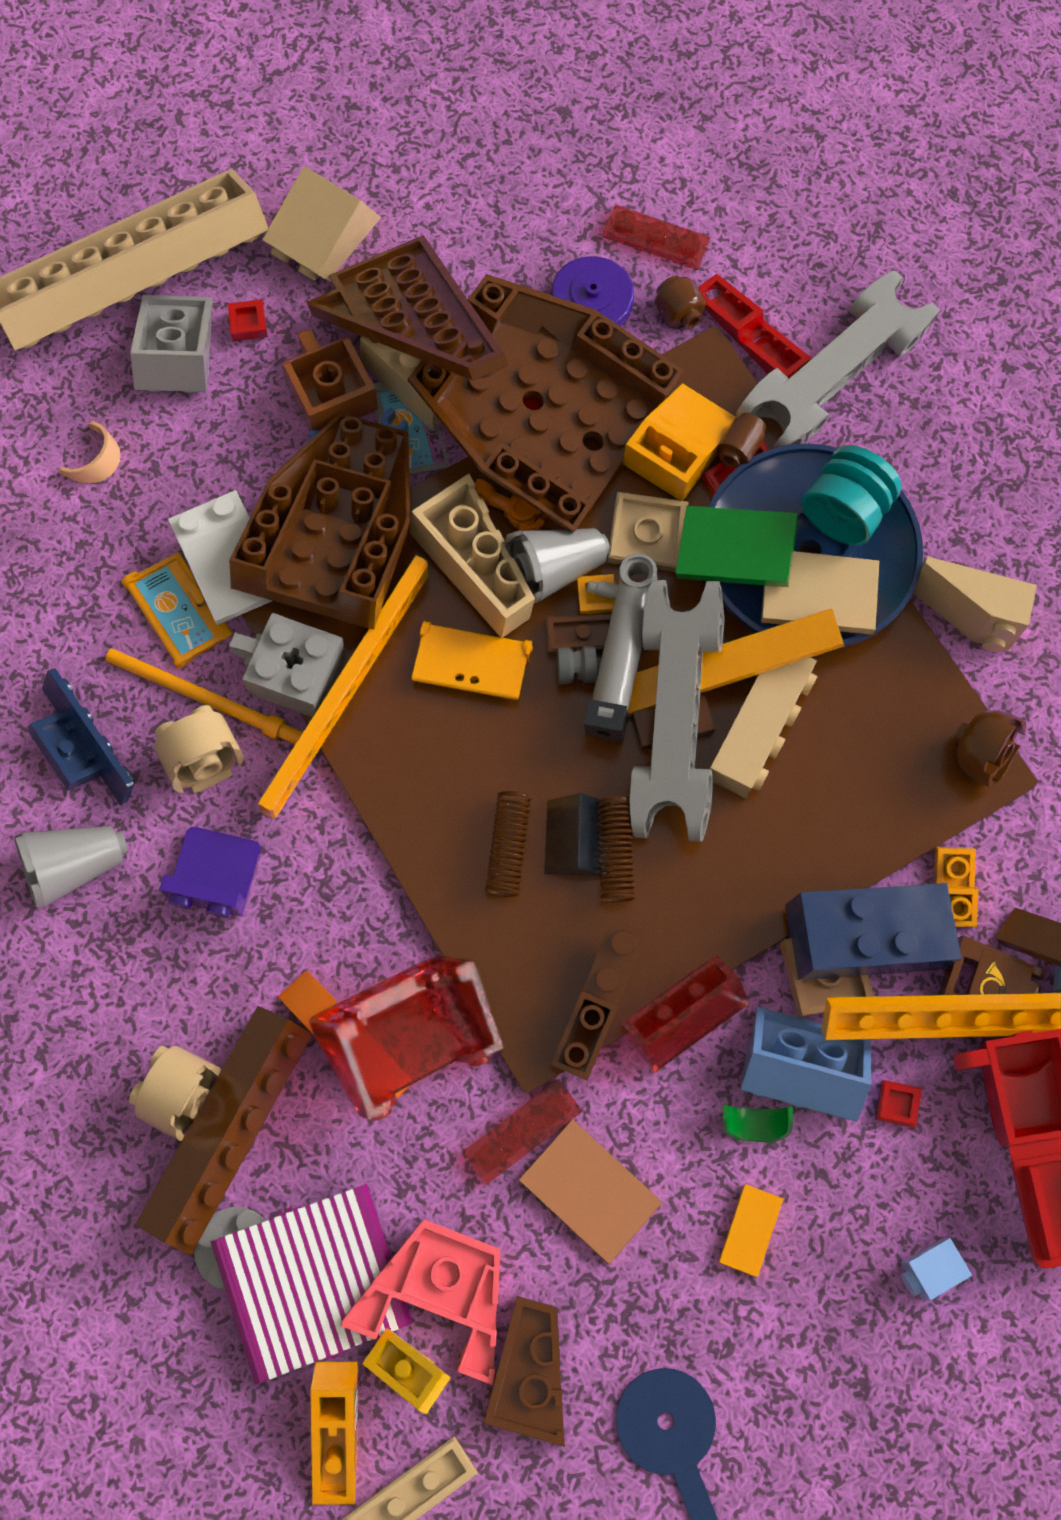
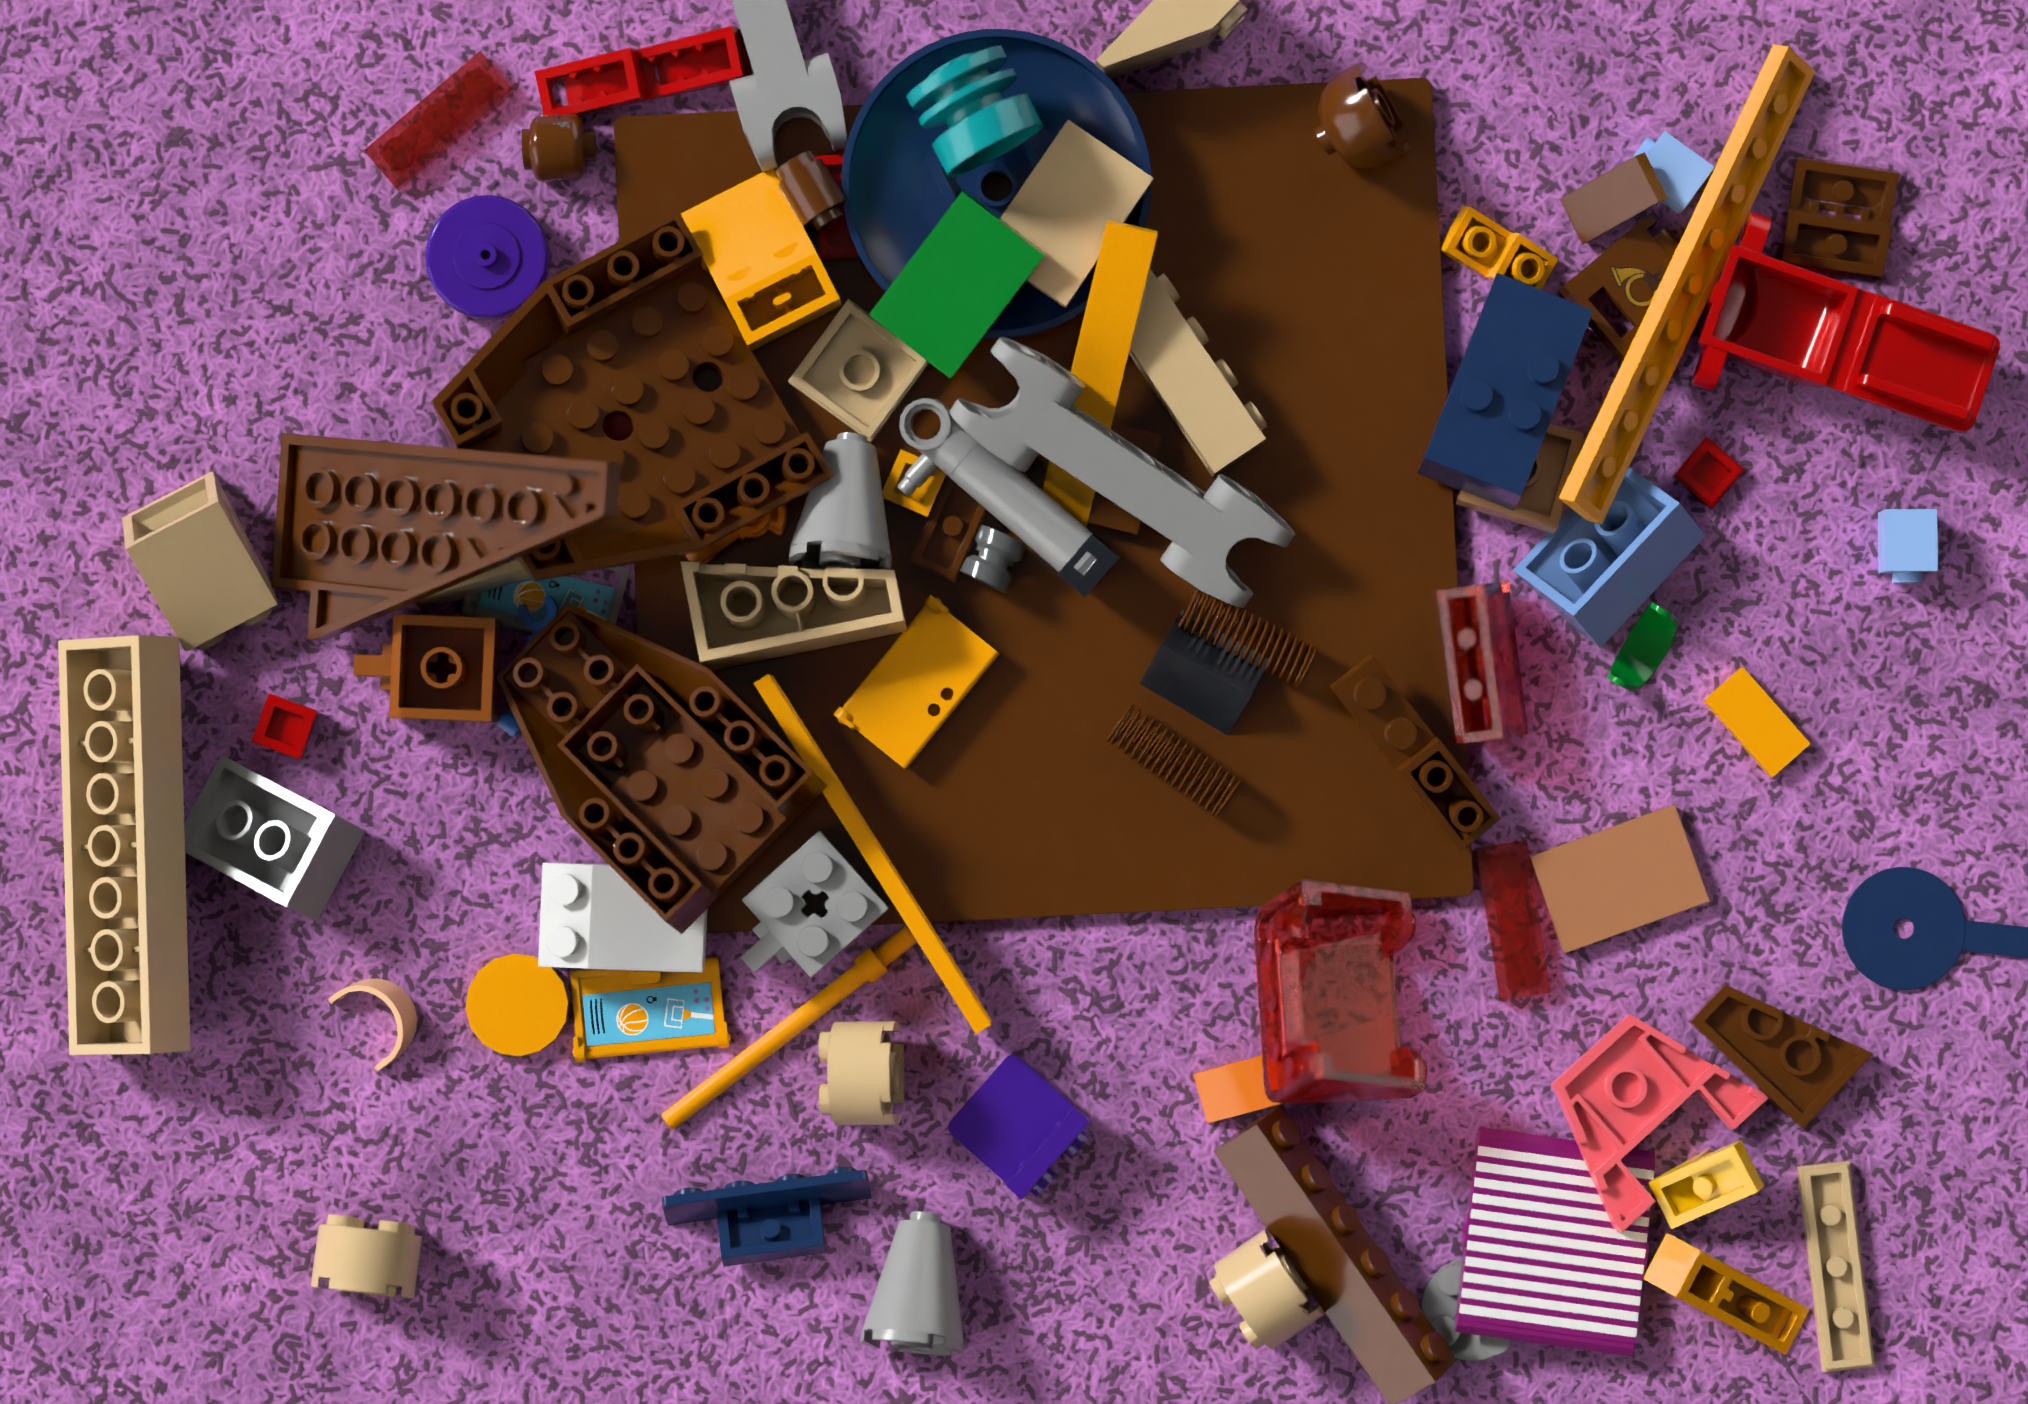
camera: 60 degrees left, 15 degrees up
(140, 530) = (517, 1005): none -> light orange tile

